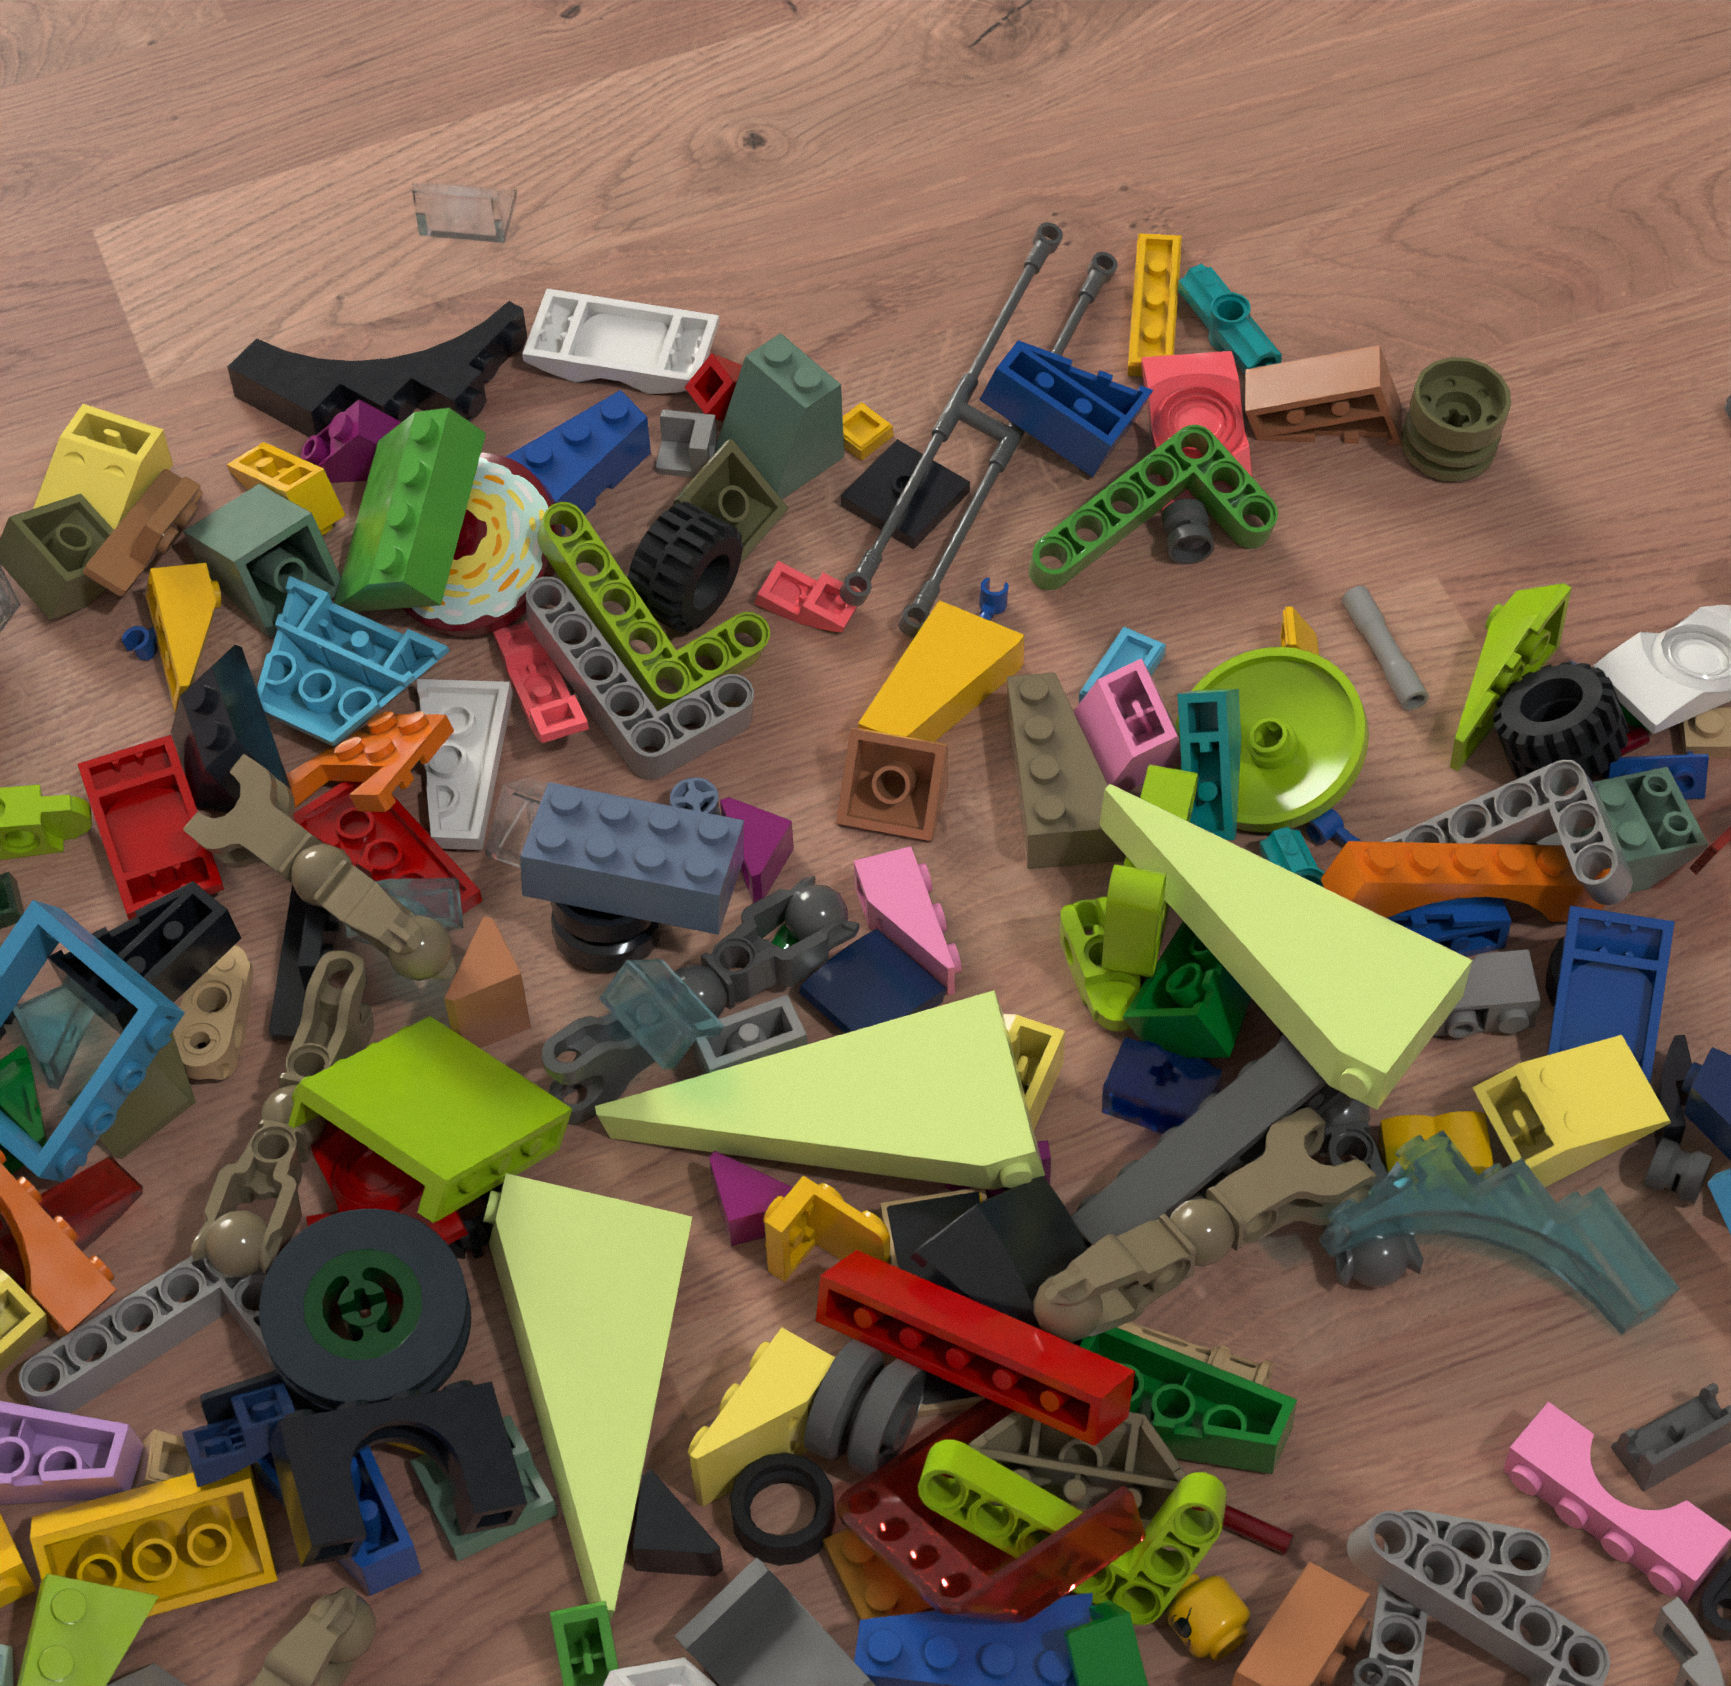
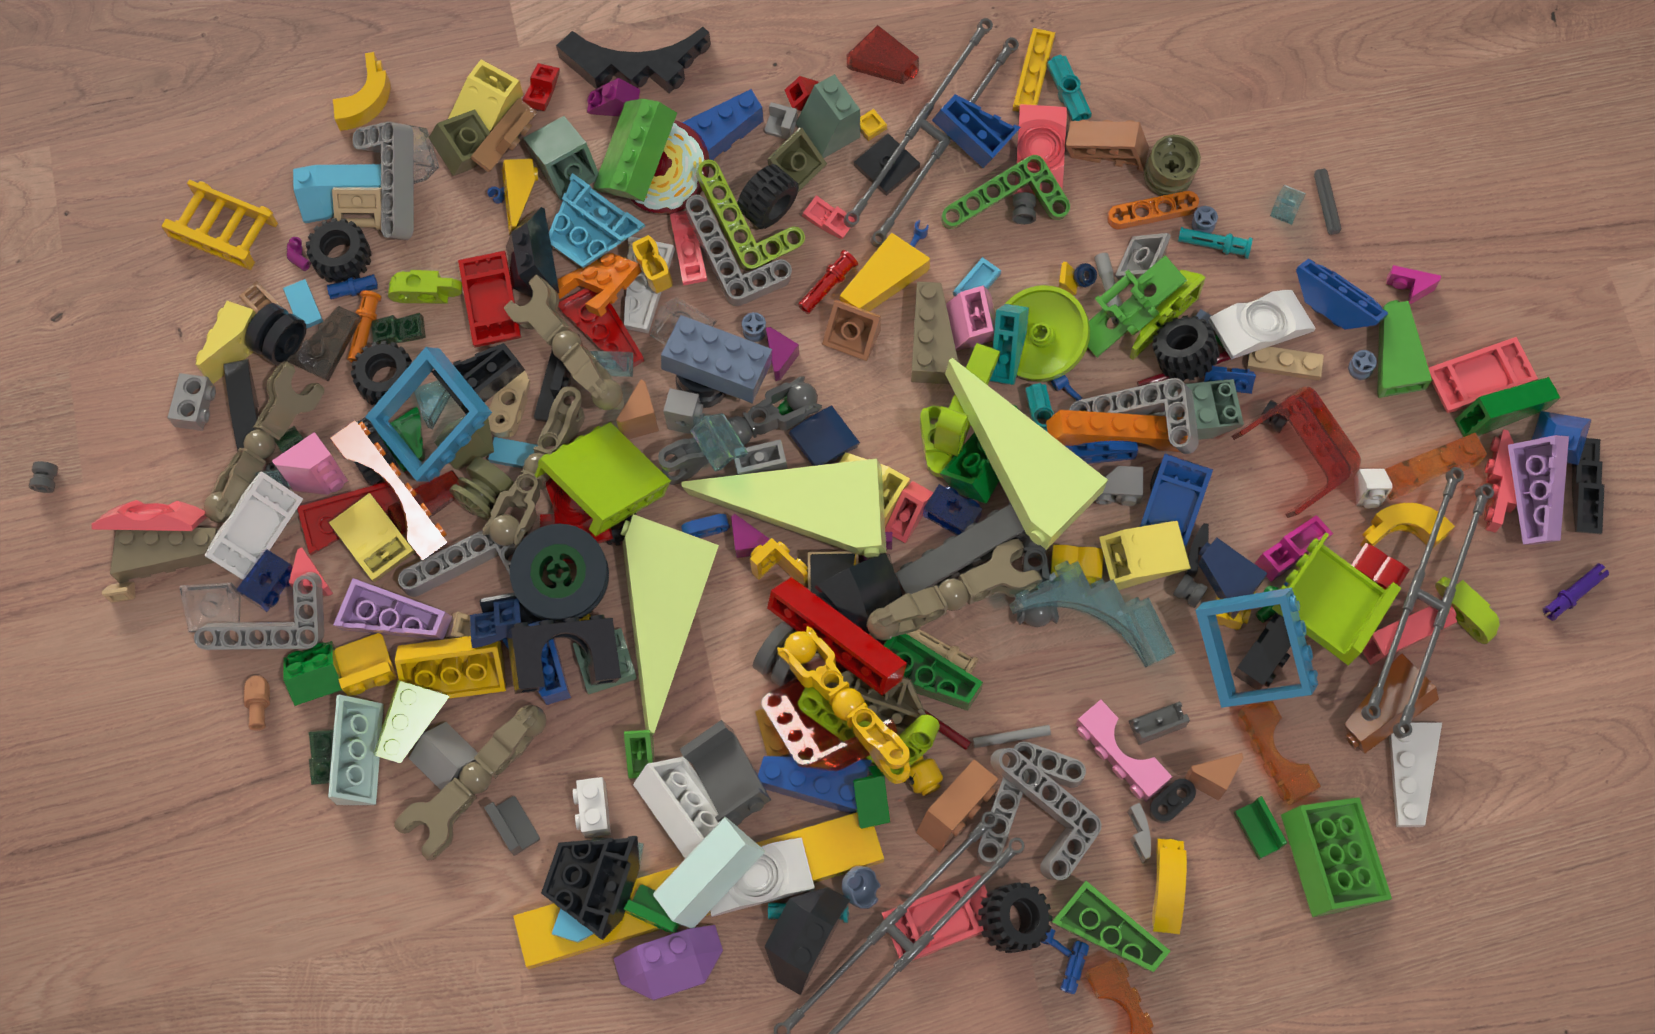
camera: 10 degrees right, 15 degrees up
(174, 1174) = (480, 492): none -> olive wheel
(207, 446) = (541, 86): none -> red slope
(226, 1108) = (510, 452): none -> medium azure tile
(291, 478) = (579, 115): yellow slope -> none
(475, 713) = (652, 264): none -> yellow brick
(576, 971) = (682, 410): none -> light grey brick
(619, 341) = (756, 55): white slope -> none
(664, 1186) = (706, 526): none -> blue beam
(669, 1536) = (684, 698): black slope -> none
(759, 1415) = (734, 651): light yellow slope -> none
(781, 1469) = (731, 675): black tyre -> none
(839, 693) = (834, 274): none -> red pin
(864, 315) = (883, 57): none -> clear red slope
(898, 904) = (843, 396): bright pink slope -> none
(1072, 1101) = (908, 511): none -> coral slope
(1104, 1524) = (846, 703): none -> yellow piece
(1332, 630) = (1085, 275): none -> dark blue plate
(1352, 1518) = (1011, 736): none -> light grey bar
(1438, 589) = (1143, 254): none -> light grey slope
(1439, 510) = (1154, 213): none -> orange beam
(1449, 669) = (1138, 309): none -> bright green piece
(1510, 540) = (1186, 236): none -> teal pin
(1536, 497) = (1204, 214): none -> sand blue wheel
(1688, 465) = (1287, 204): none -> clear light blue slope

